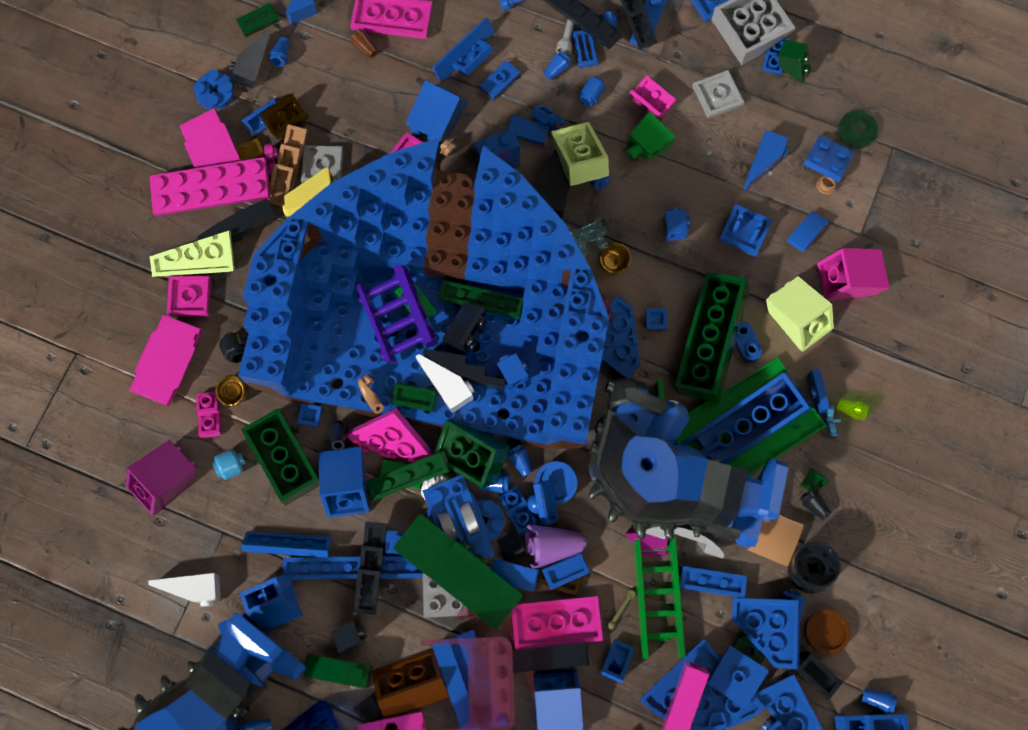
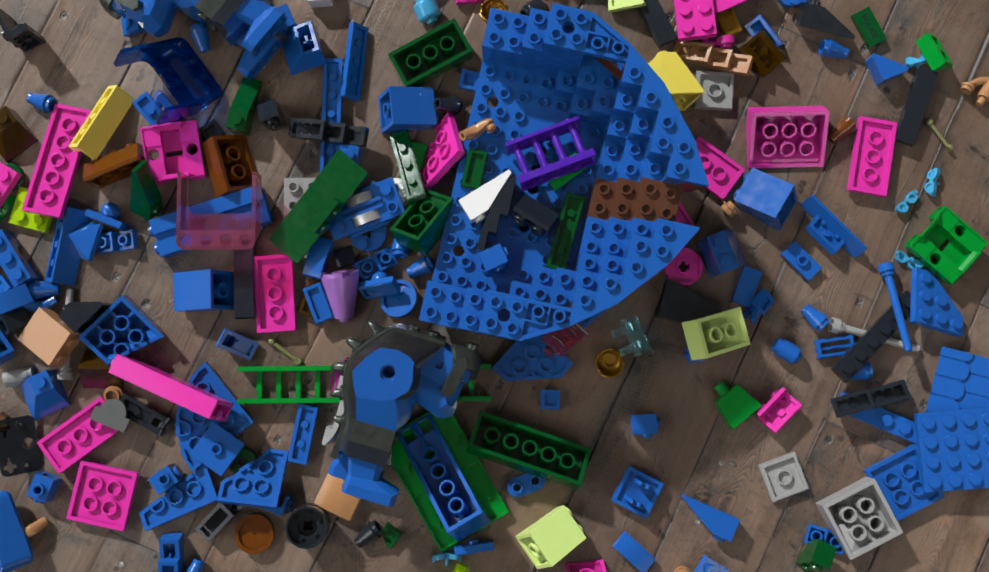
camera: 90 degrees right, 10 degrees up
(371, 94) = (786, 136): none -> dark pink slope

